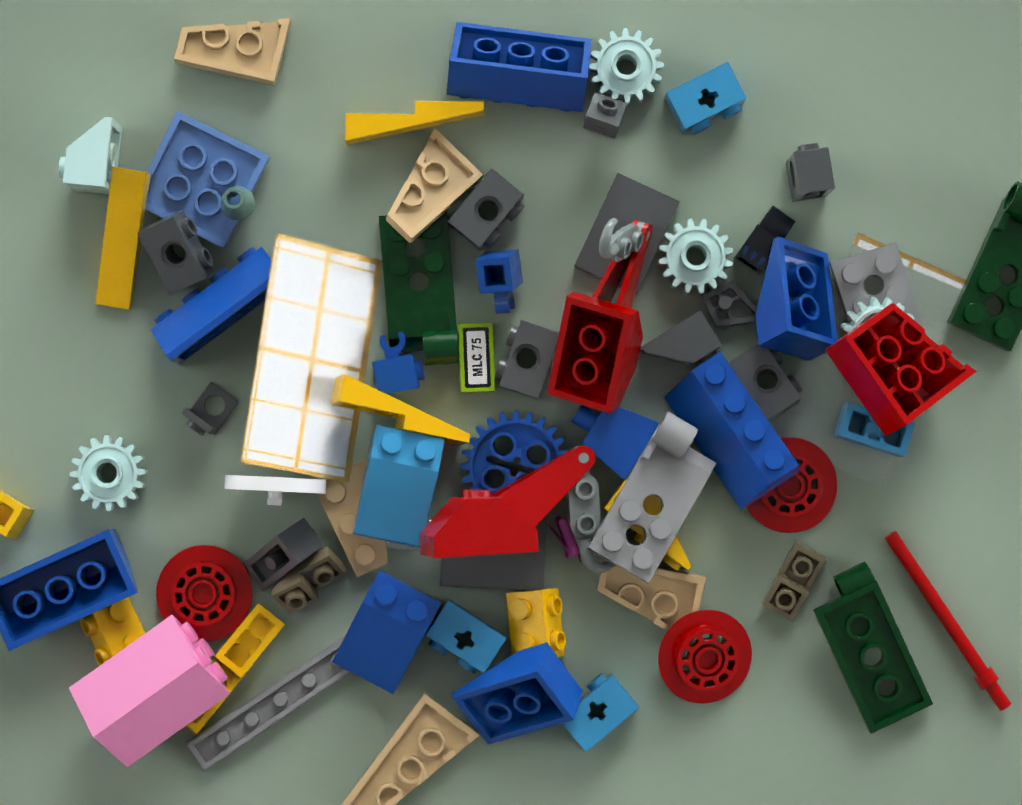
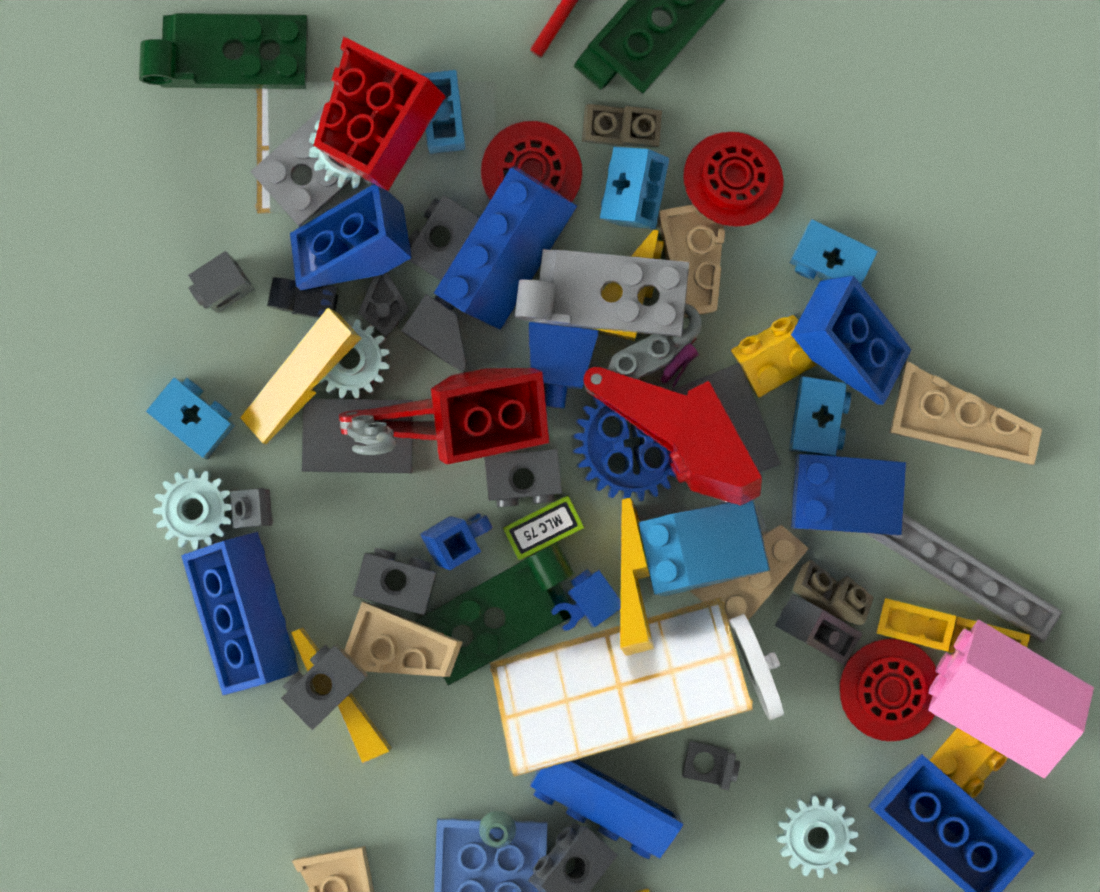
camera: 115 degrees left, 0 degrees up
(426, 129) = (313, 706): none -> dark grey brick
(703, 210) = (304, 368): none -> yellow slope
(734, 566) = (634, 187): none -> dark azure brick

